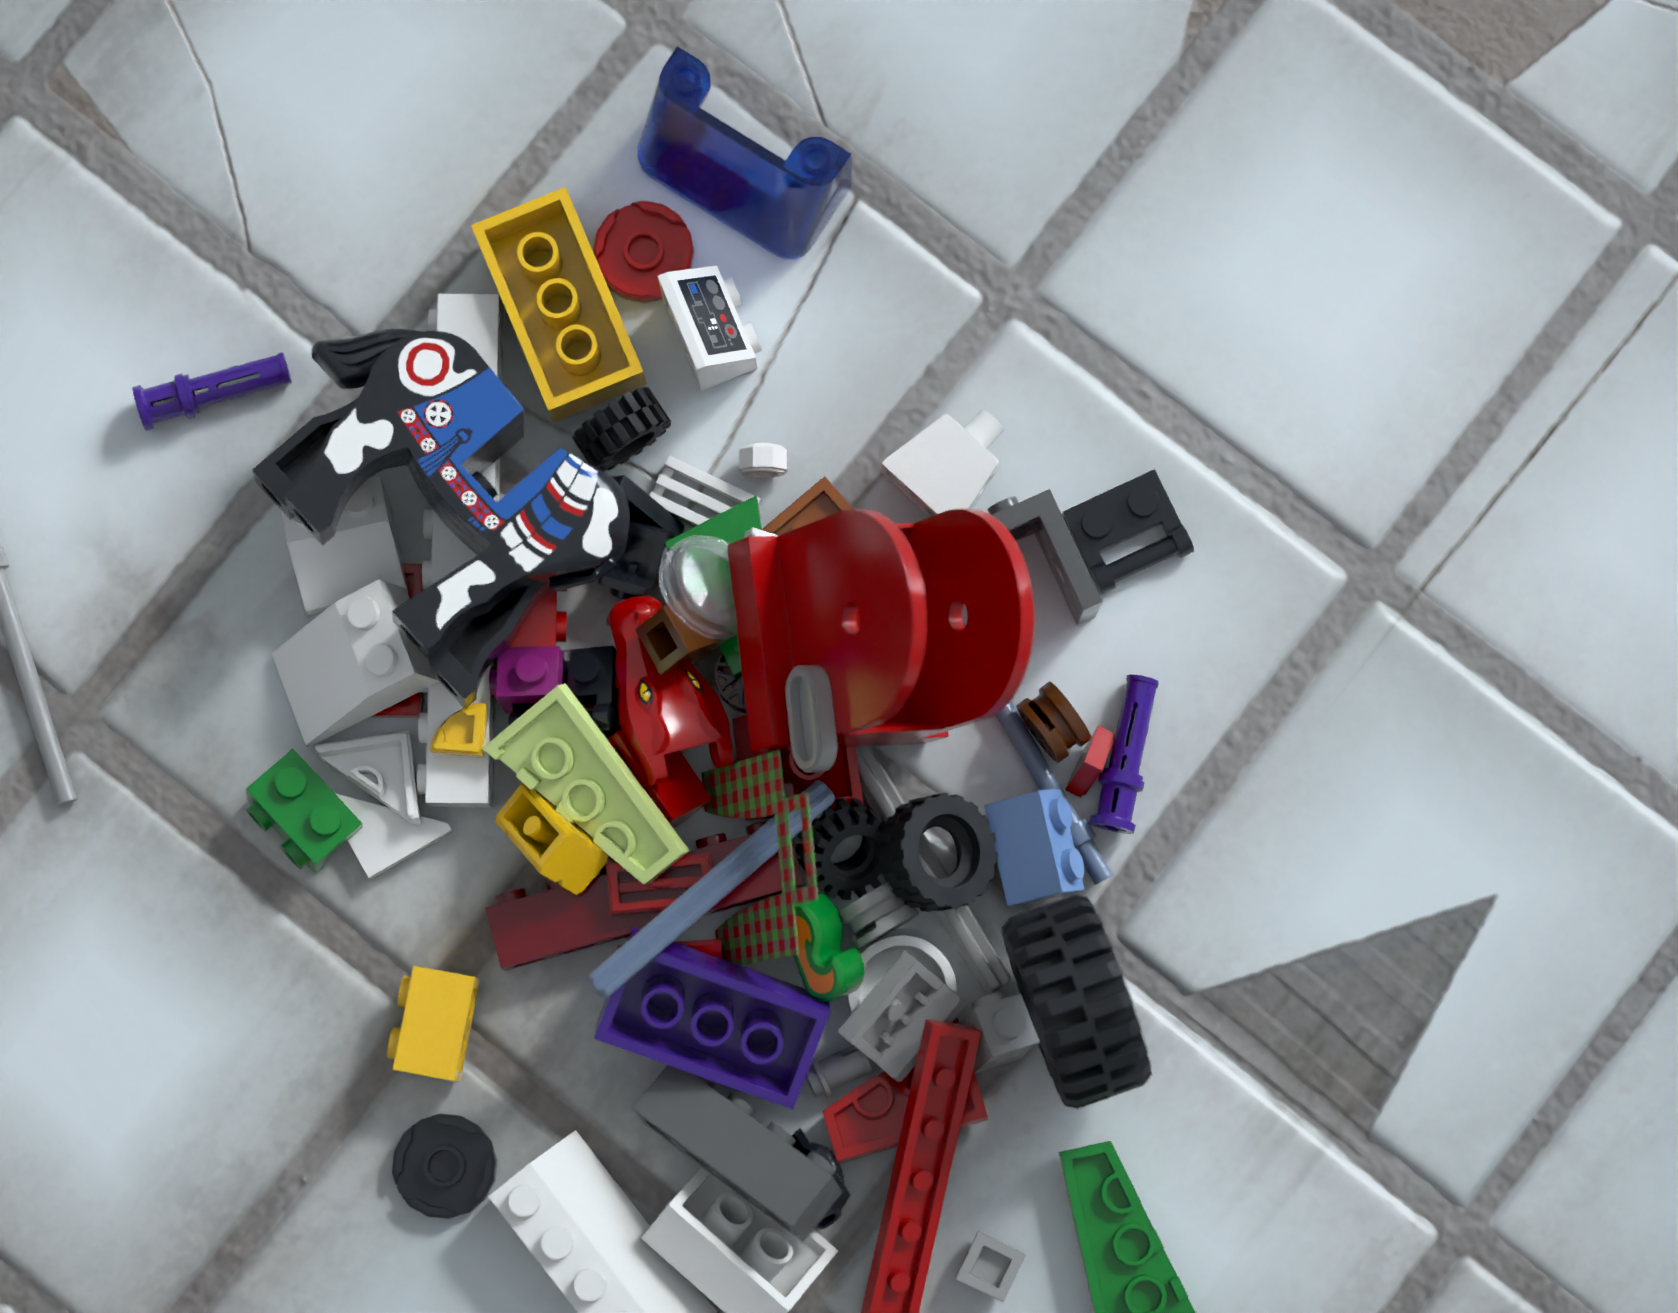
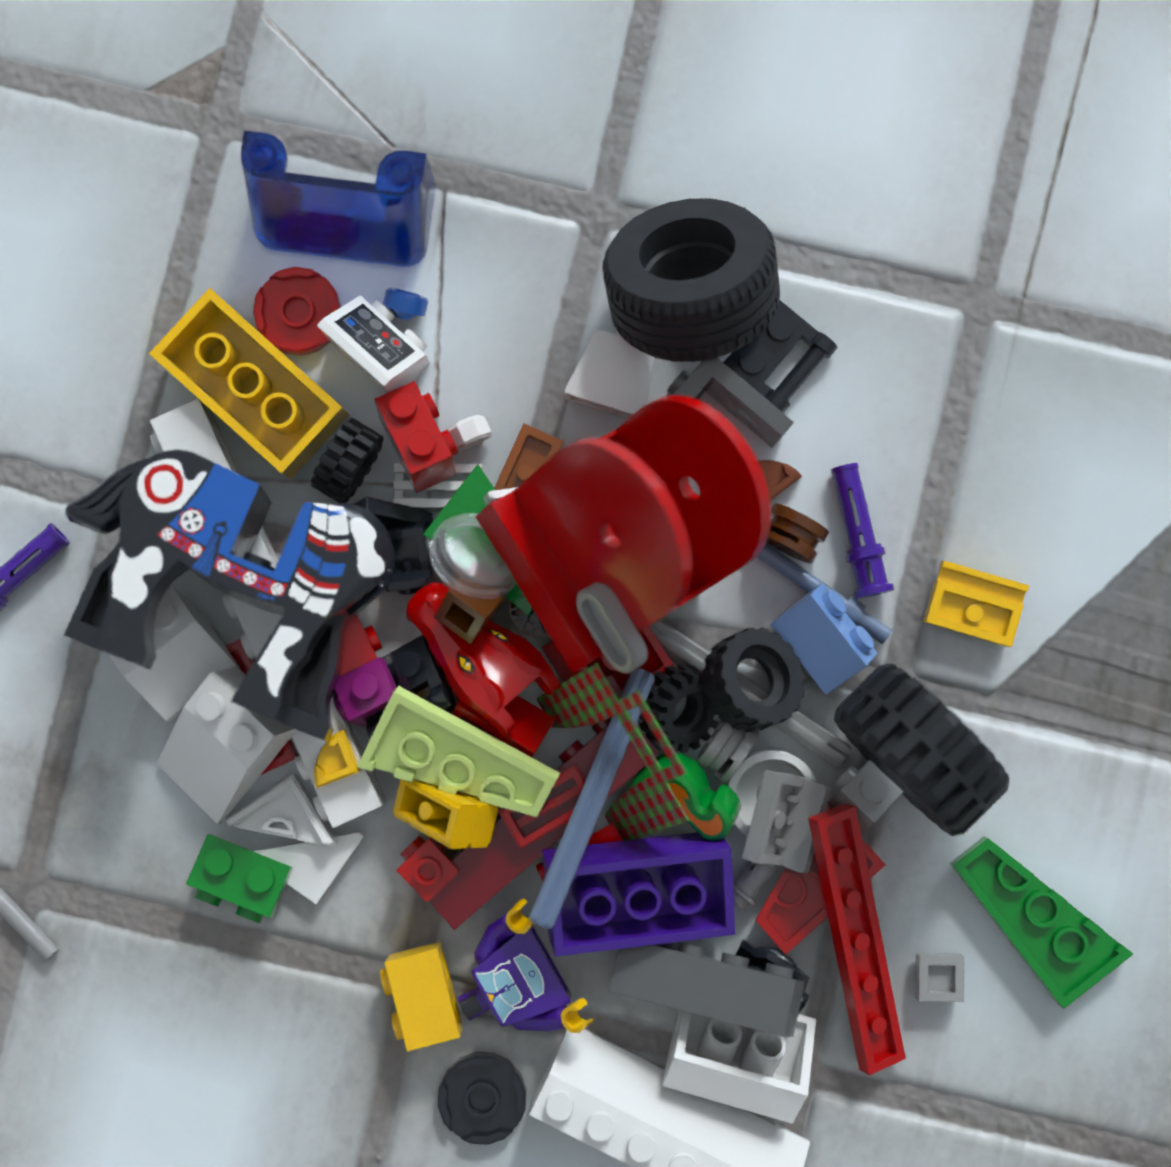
camera: 25 degrees left, 5 degrees up
(504, 889) = (427, 867): none -> red bracket
(544, 1053) = (520, 979): none -> dark purple torso
(705, 438) = (416, 437): none -> red brick
(759, 295) = (405, 303): none -> blue tile
(1059, 655) = (778, 476): none -> copper tile
(1060, 451) = (699, 317): none -> black tyre
(1090, 762) = (834, 550): tile -> none
(1214, 888) = (975, 604): none -> yellow plate

